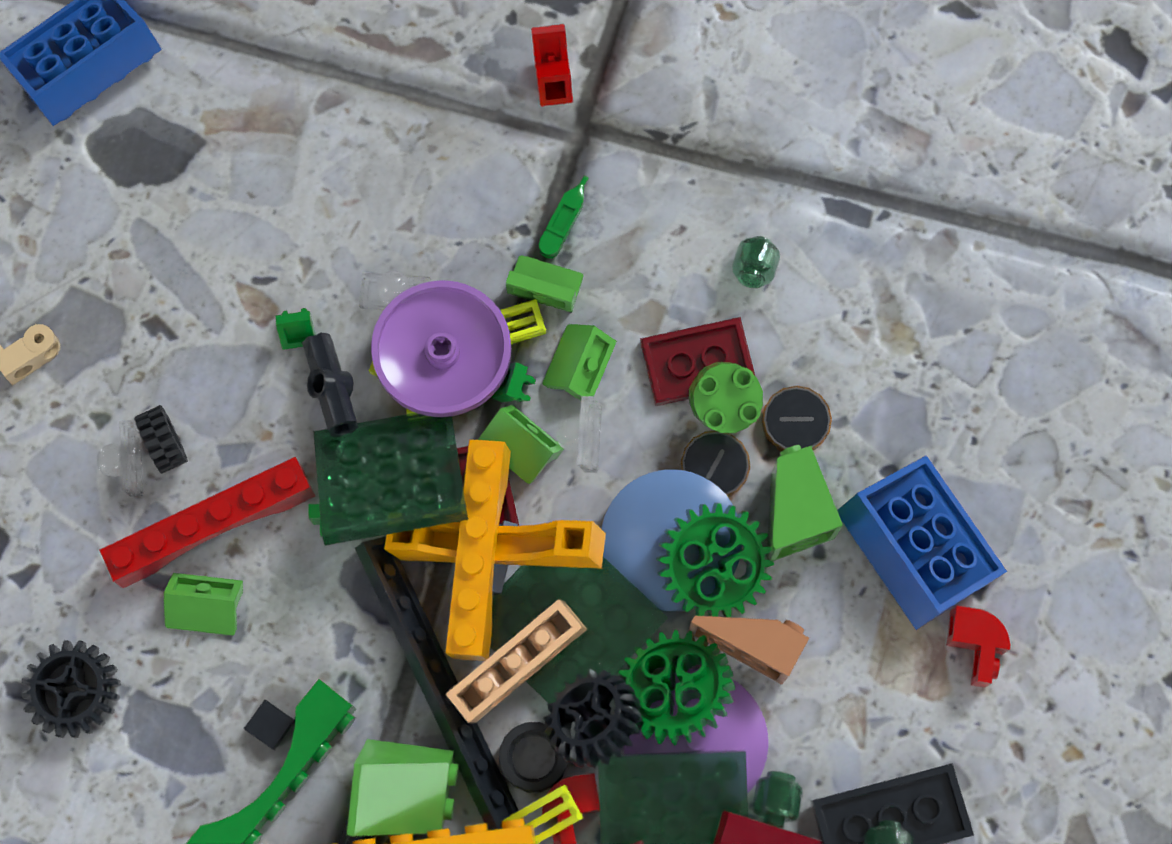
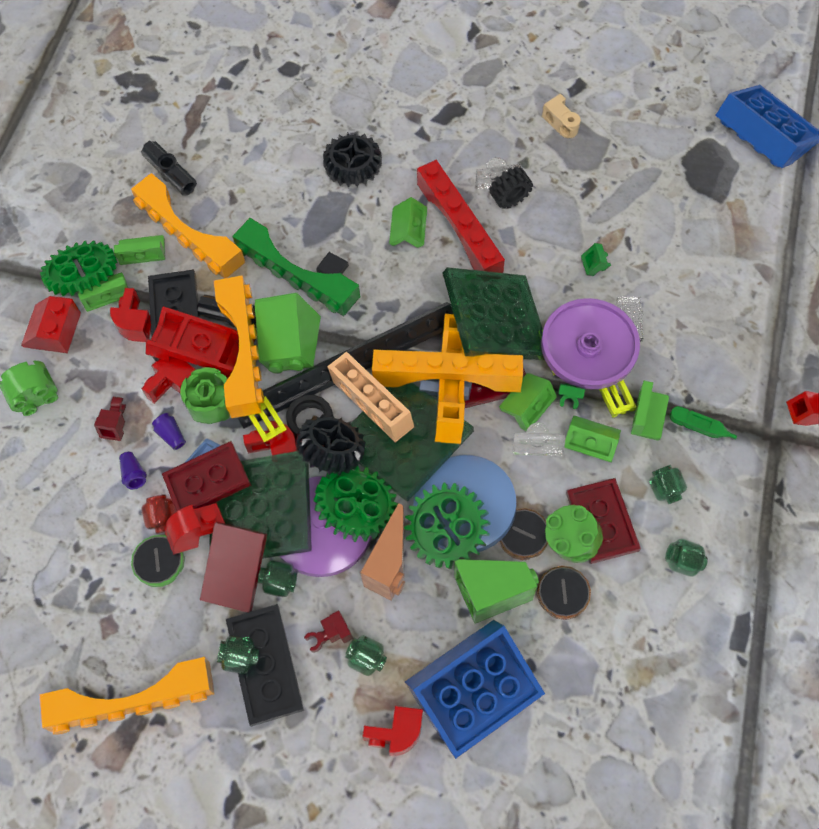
camera: 90 degrees right, 10 degrees down
(330, 384) = (557, 280): black piece -> none
(654, 271) = (668, 484): none -> clear green head
(845, 723) = (334, 629): none -> dark red piece
(881, 680) = (365, 655): none -> clear green head

